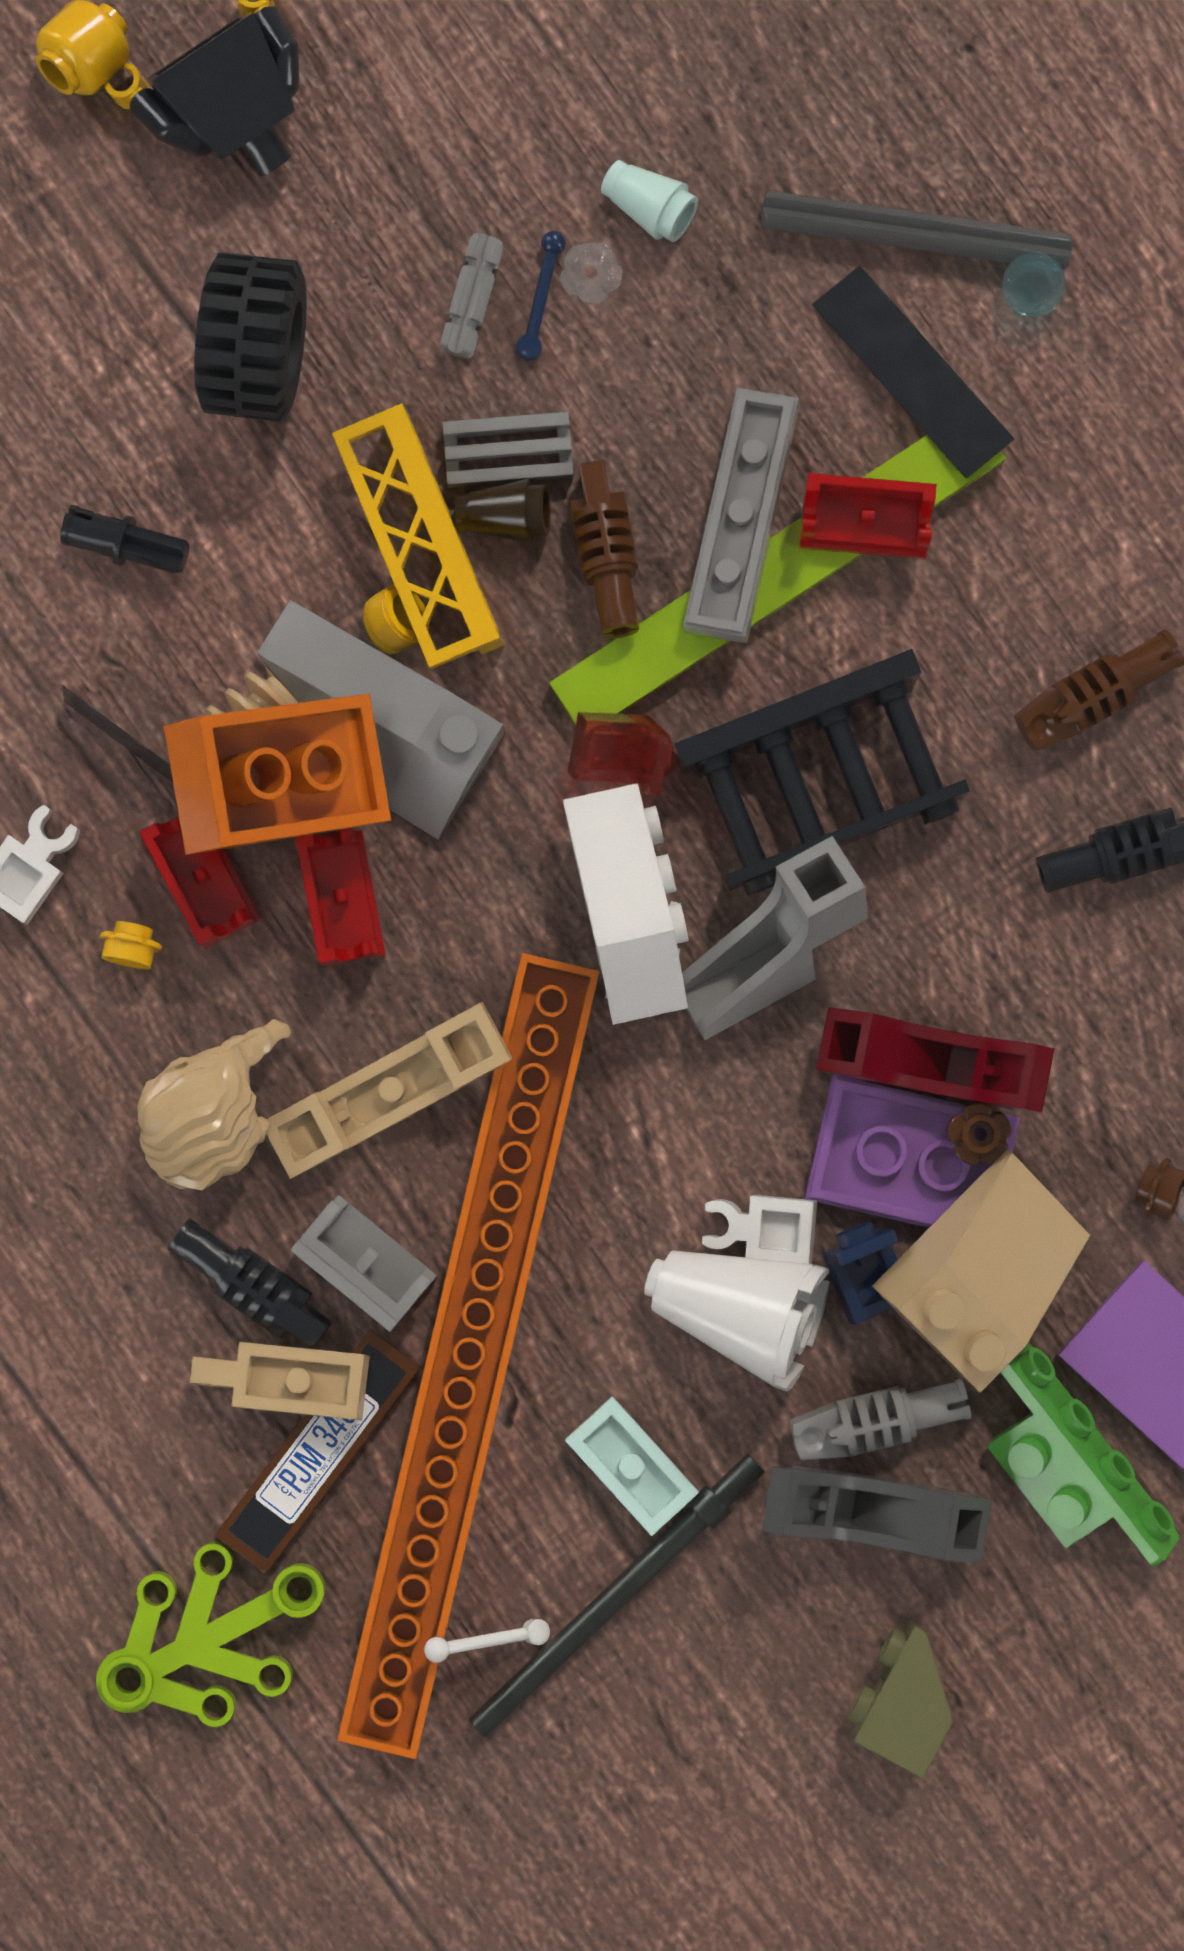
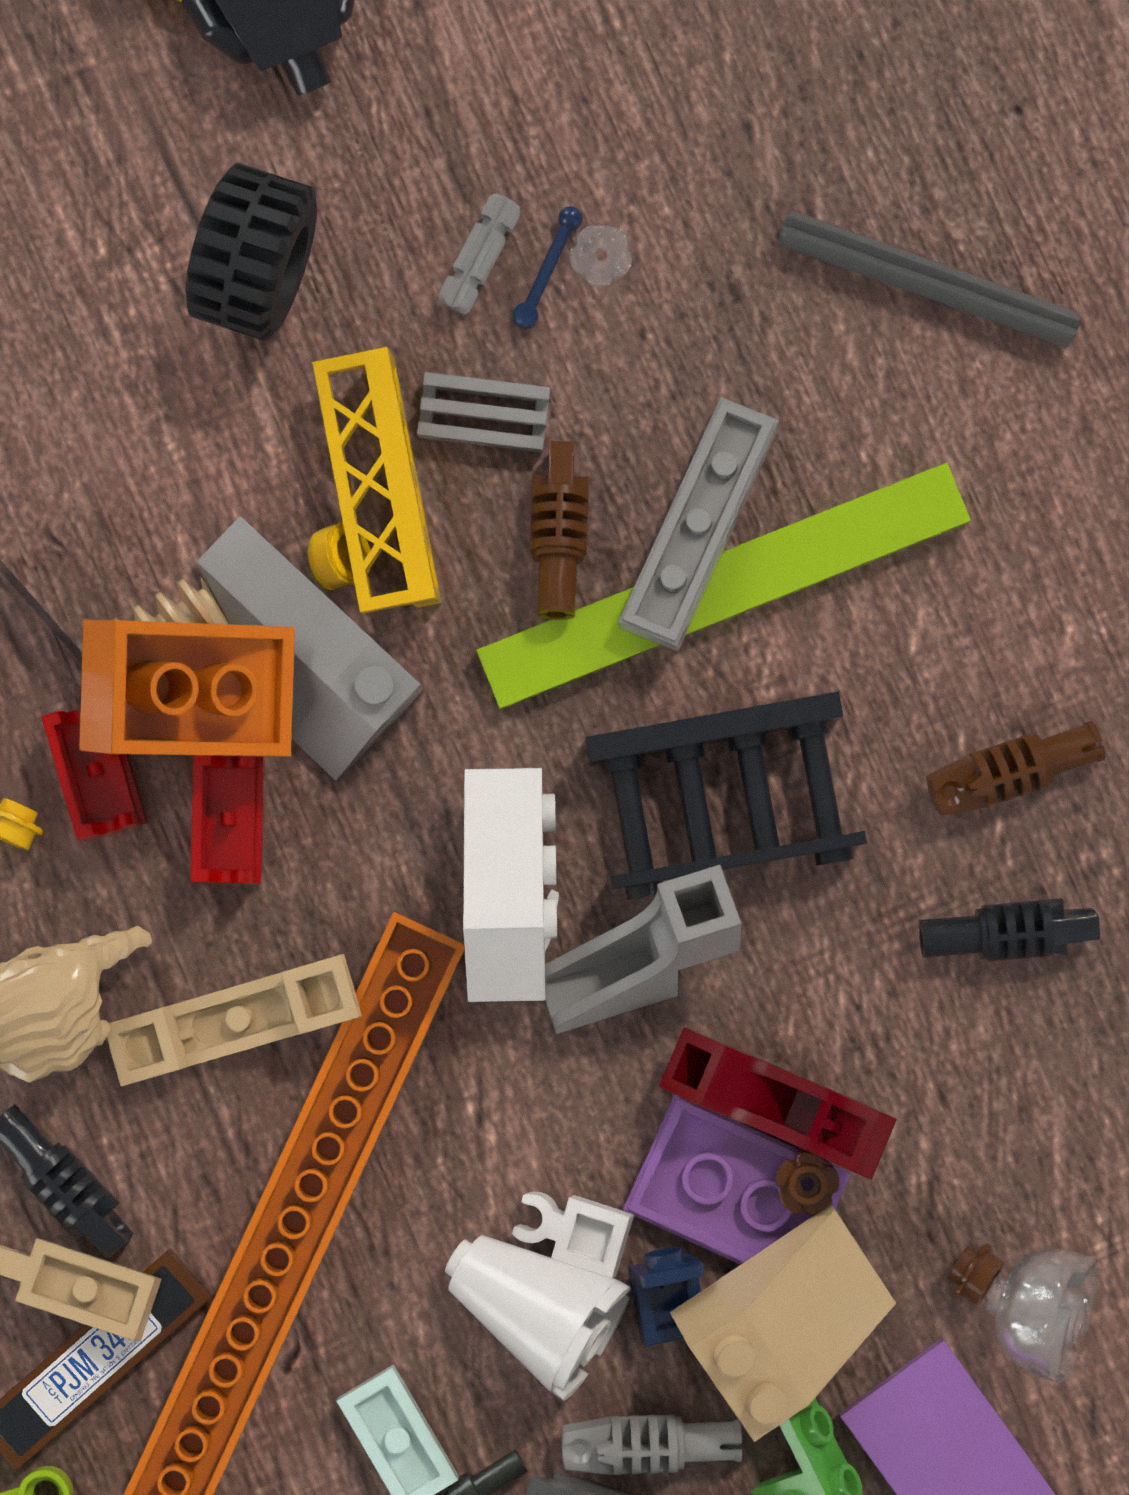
camera: 10 degrees right, 0 degrees up
(123, 540) = (88, 424): black axle -> none
(364, 1262) = (175, 1184): light grey hinge -> none
(506, 511) = (469, 472): dark brown cone -> none
(621, 750) = (532, 732): clear red bracket -> none
(651, 200) = (675, 196): light aqua cone -> none
(867, 516) = (821, 551): red hinge -> none
(913, 372) = (897, 417): black sticker -> none
(1033, 284) = (1033, 355): clear light blue plate -> none

